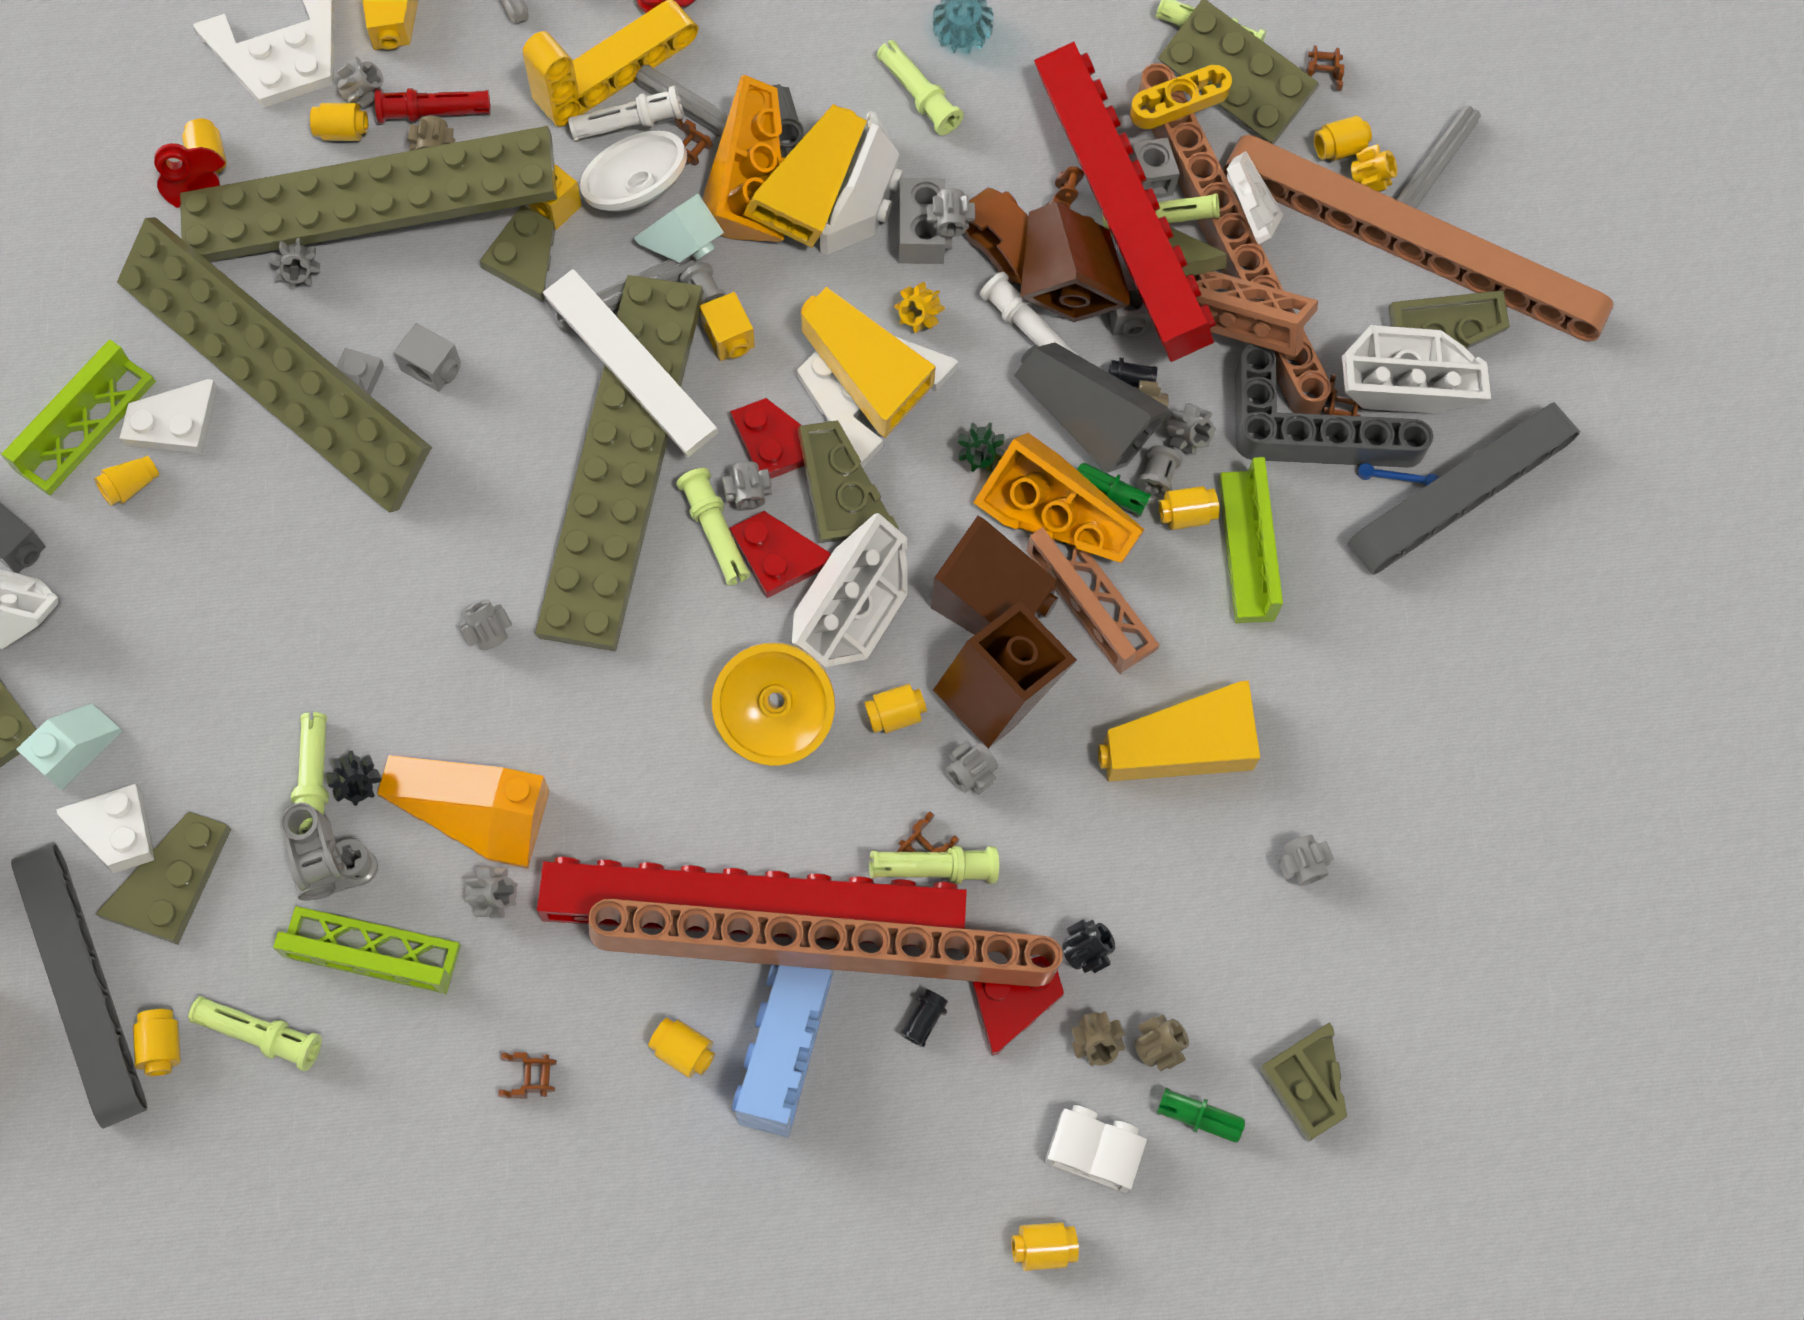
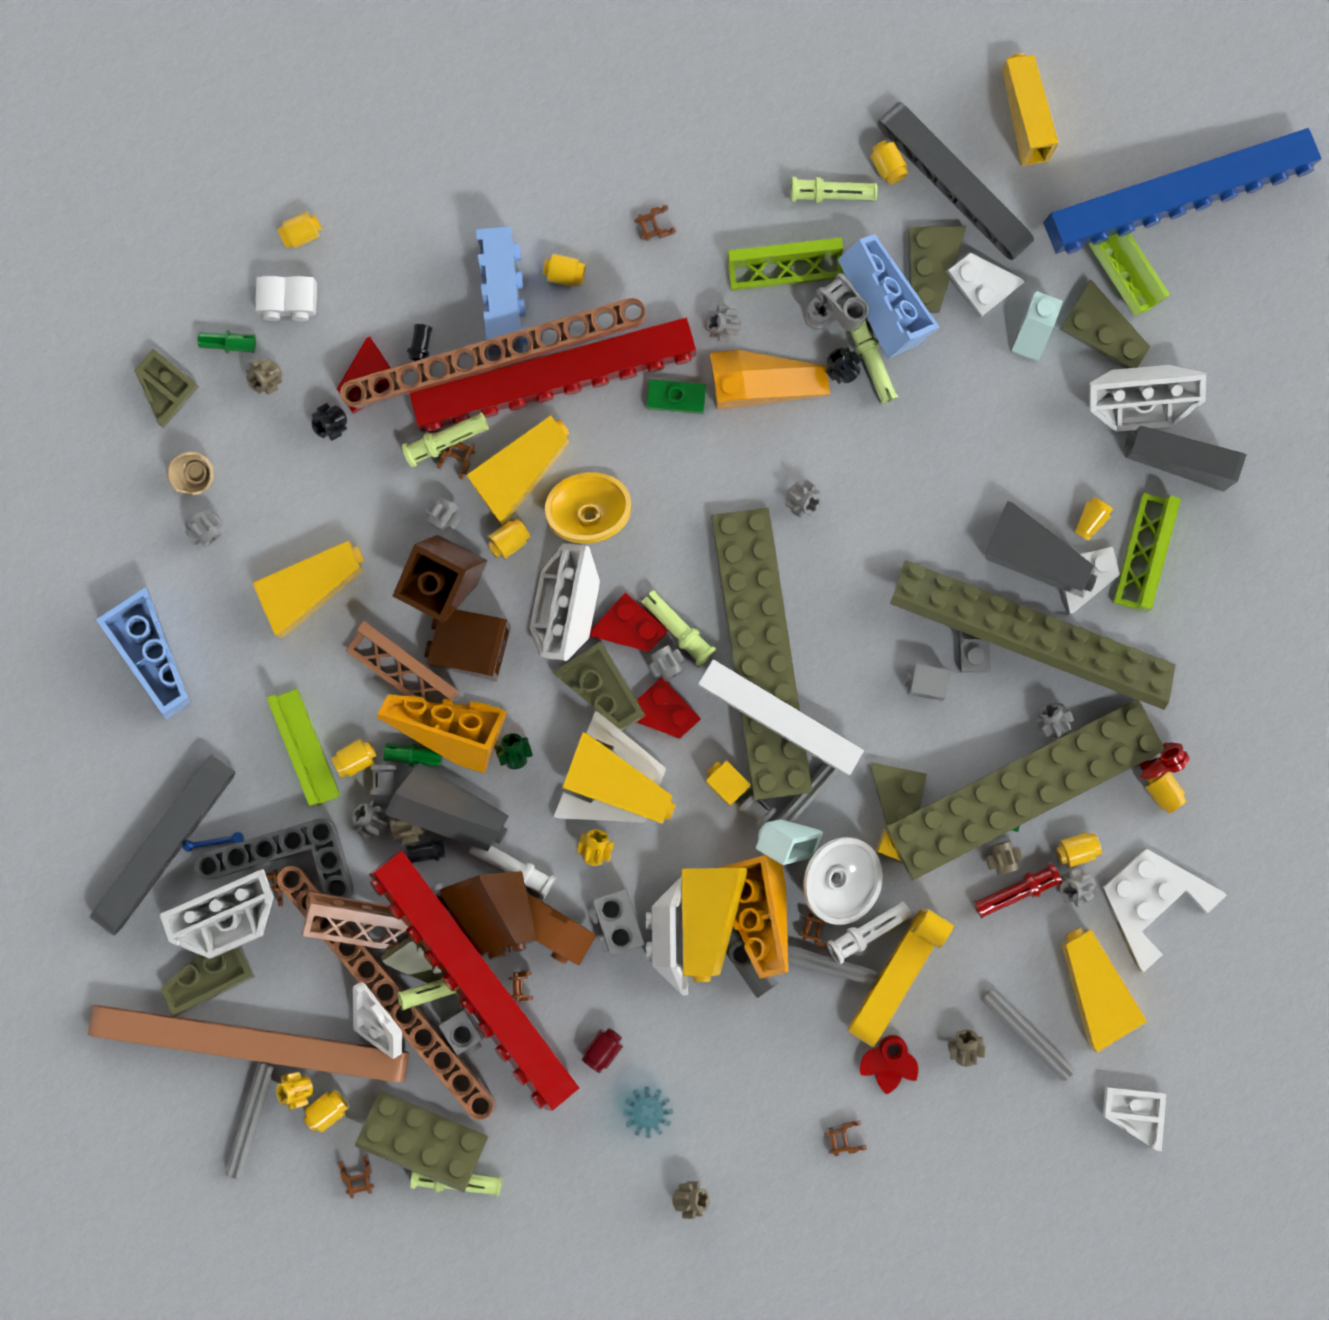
camera: 165 degrees right, 15 degrees up
(220, 457) = (1036, 552): none -> dark grey slope
(246, 842) = (894, 307): none -> light blue wedge
(597, 822) = (676, 396): none -> green plate
(847, 795) = (516, 470): none -> yellow slope
(928, 97) = (649, 1032): yellowish green pin -> none
(951, 212) = (594, 920): light grey gear -> none
(992, 98) = (602, 1049): none -> dark red brick
(1098, 1038) = (305, 364): dark tan gear -> none
(1189, 83) = (478, 1080): yellow beam -> none
(1304, 941) = (190, 473): none -> tan hair
(1429, 725) = (144, 647): none -> light blue wedge

